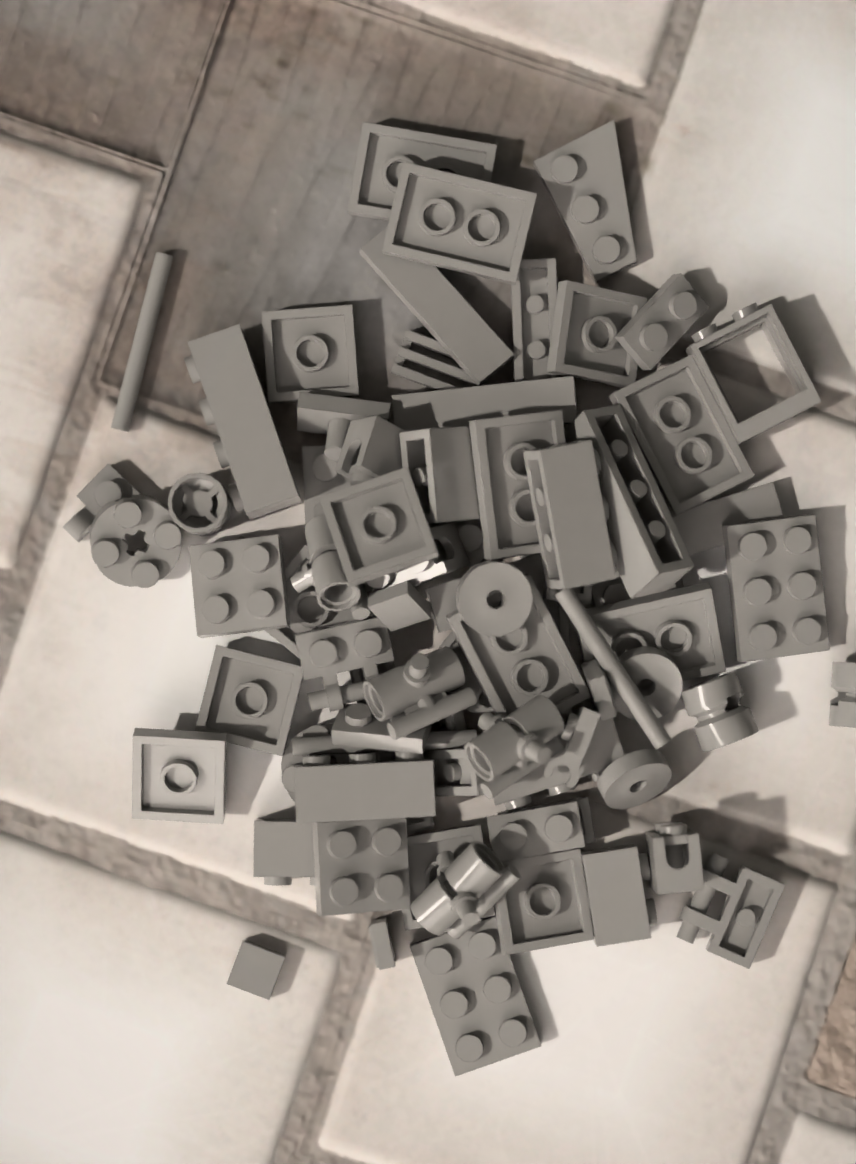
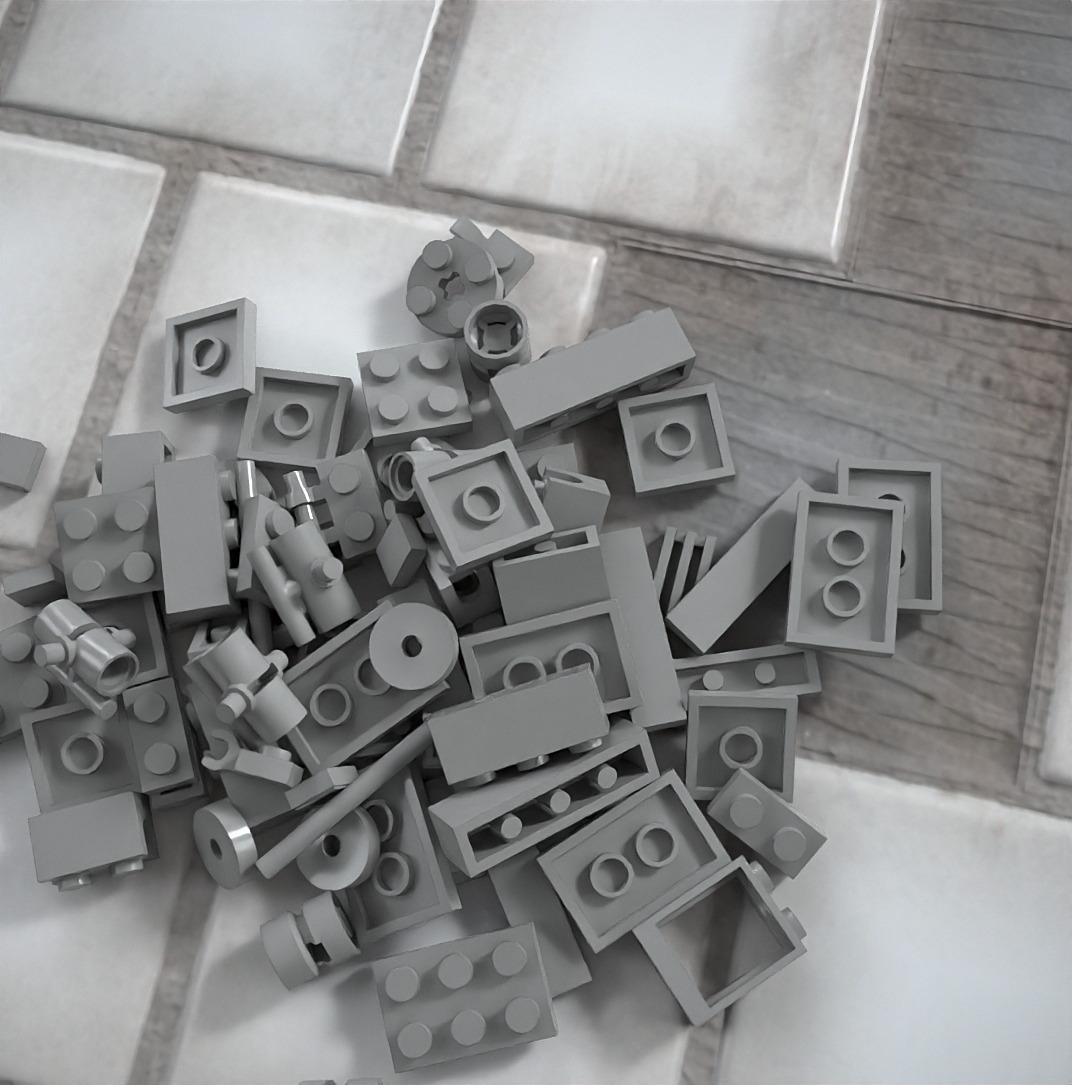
camera: 90 degrees right, 15 degrees down
(142, 342) = (666, 276): light grey bar -> none
(333, 416) = (610, 463): light grey tile -> none
(591, 199) = (899, 727): light grey wing -> none
(674, 858) = (128, 899): light grey brick -> none
(743, 917) = (72, 997): light grey plate -> none

